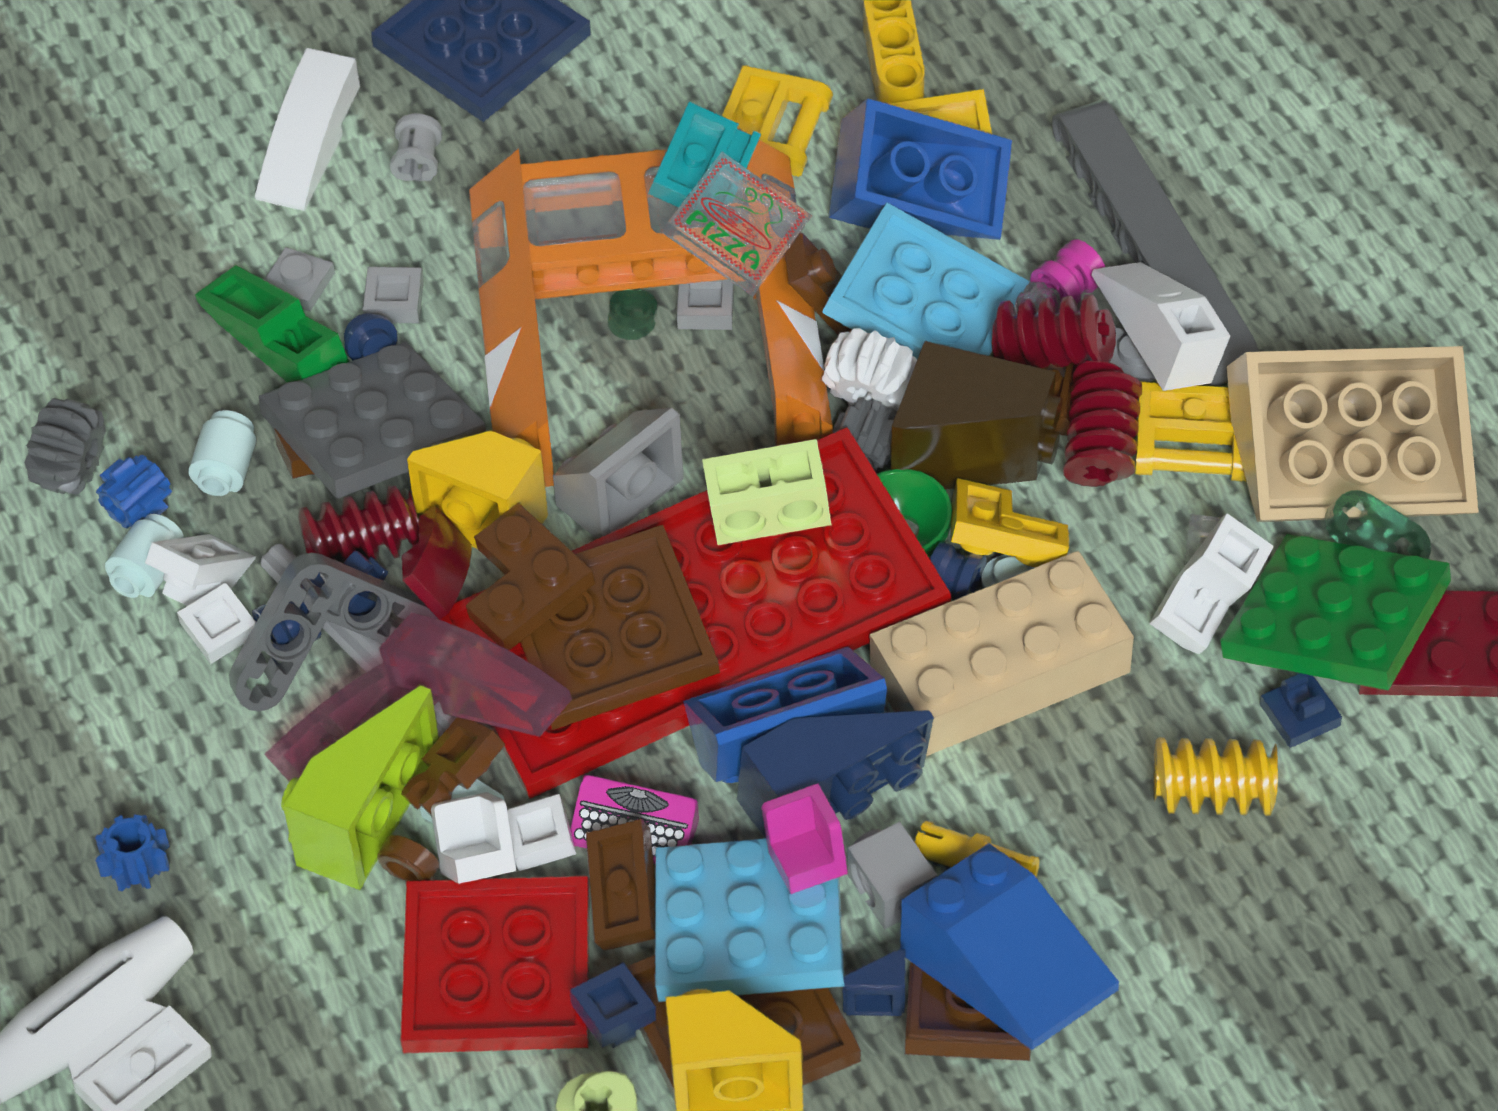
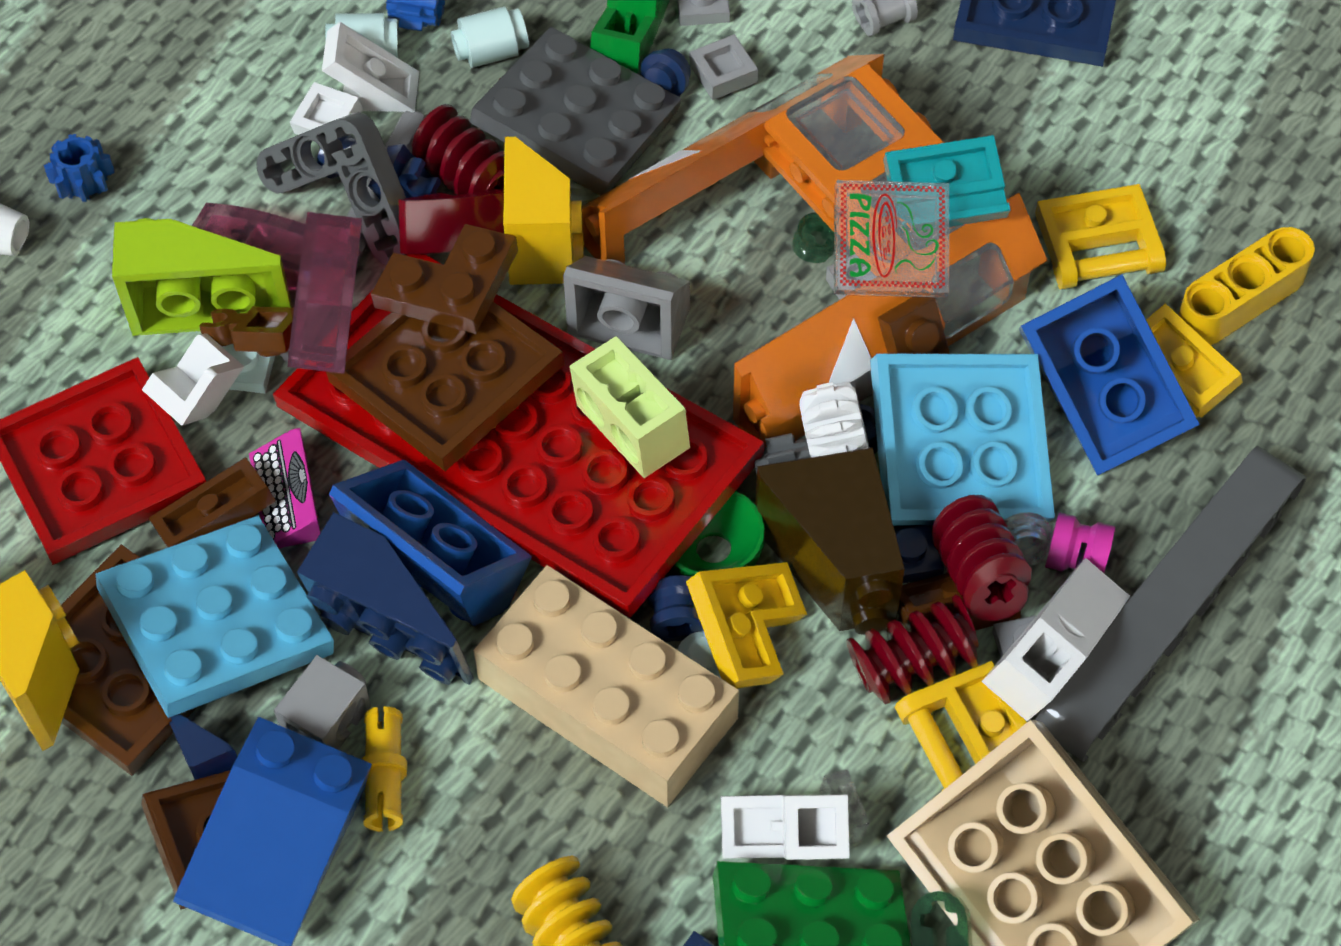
camera: 60 degrees right, 5 degrees up
(407, 859) = (161, 346): reddish brown tile -> none
(540, 832) = (237, 426): white plate -> none
(613, 1006) = (74, 555): dark blue tile -> none
(804, 838) = (282, 614): dark pink panel -> none

